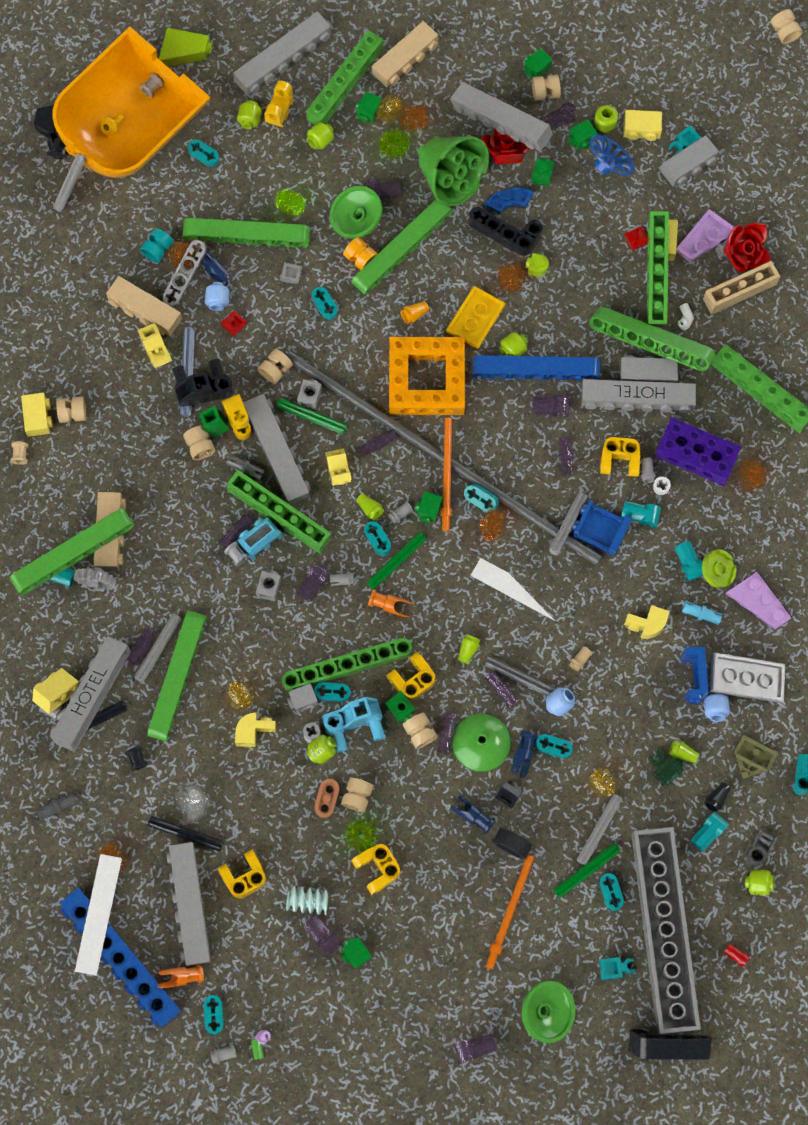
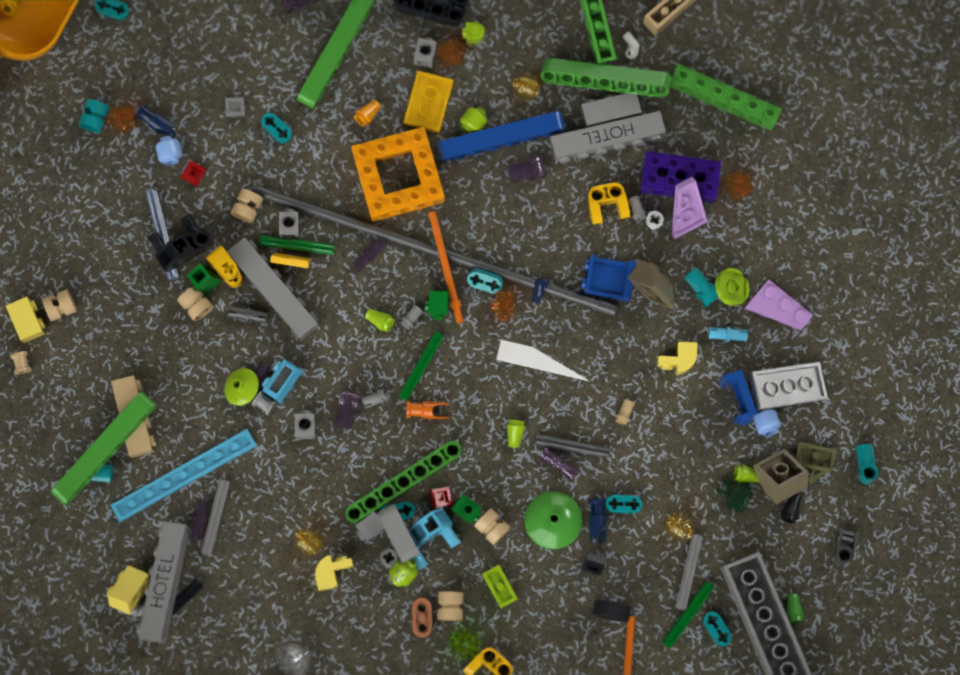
camera: 20 degrees left, 5 degrees up
(95, 579) = (134, 469): light grey gear -> none
(136, 758) = (227, 632): black bush -> none
(140, 600) = (183, 475): none -> medium azure tile
(144, 306) = (100, 181): tan brick -> none
(154, 345) = (122, 218): light yellow brick -> none
(176, 675) = (242, 539): bright green beam -> none
(187, 274) = (128, 136): light grey beam -> none
(219, 532) = (247, 387): none -> lime dish
(246, 232) = (178, 77): bright green beam -> none
(279, 512) = (293, 350): bright green brick -> none
(290, 202) = (213, 36): clear neon green gear -> none
(301, 427) = (290, 260): none -> yellow tile
(326, 709) = (398, 533): none -> light grey beam
(338, 467) = (338, 289): light yellow brick -> none
(352, 204) = (274, 21): bright green dish -> none
(359, 253) = (295, 68): light orange wheel -> none
(378, 689) = (440, 498): none -> tile
(380, 536) = (399, 346): teal beam -> none
(410, 790) = (499, 586): none -> lime plate
(415, 682) = (475, 480): yellow piece -> none
(444, 747) = (519, 535): clear purple pin -> none
(474, 815) = (567, 593): dark blue piece -> none
(482, 277) = (422, 59): none -> light grey brick
(530, 519) = (539, 287): none -> dark blue arm
(560, 701) = (617, 459): light blue head -> none
(566, 456) = (555, 216): clear purple pin -> none
(568, 523) = (576, 282): light grey axle -> none
(573, 327) = (526, 86): none -> clear yellow head
(641, 543) = (653, 284): none -> dark tan slope
(644, 514) = (647, 252): teal piece -> none
(692, 895) = (794, 610): none -> bright green cone
(696, 482) = (688, 208): none -> lavender wing
(712, 828) = (794, 541): teal piece -> none
(716, 762) = (781, 476): none -> dark tan slope
(736, 955) = (850, 654): red pin -> none
(760, 882) = (853, 579): lime head -> none

